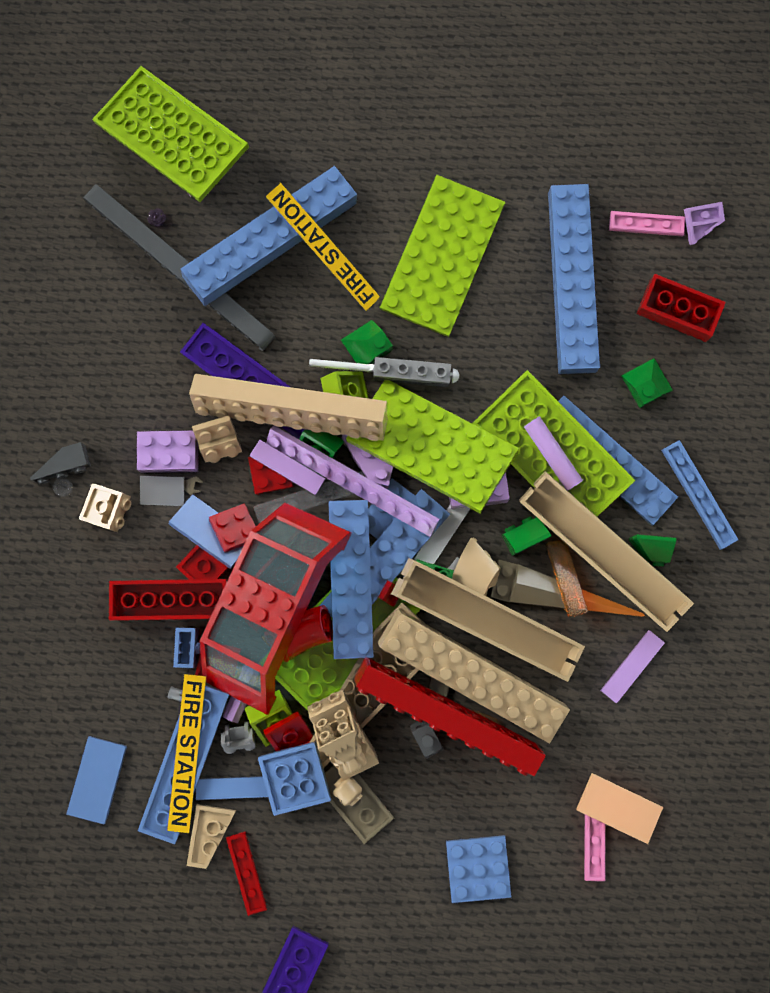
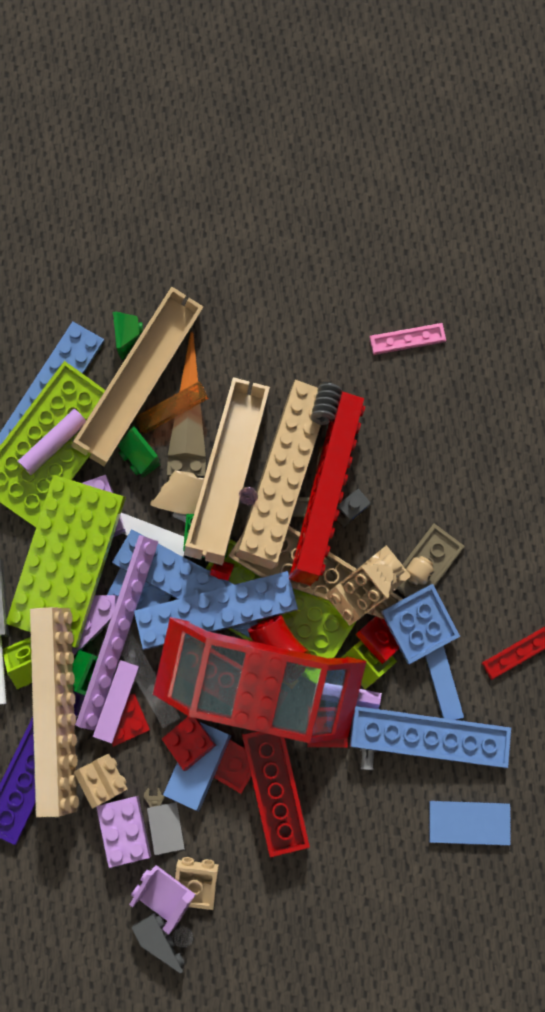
camera: 105 degrees left, 5 degrees down
(101, 476) = (163, 896): none -> lavender panel
(186, 647) = (319, 761): medium blue brick -> none
(186, 753) = (421, 735): yellow sticker -> none
(207, 832) = (491, 698): tan wing -> none
(238, 738) = (395, 689): light grey piece -> none
(457, 633) = (248, 491): none -> plate
(478, 869) = (460, 437): medium blue plate -> none
(537, 734) = (326, 403): none -> dark grey piece
(619, 808) = (374, 321): light nougat tile -> none
(632, 666) = (242, 334): lavender tile -> none
(699, 495) = (66, 302): medium blue plate -> none

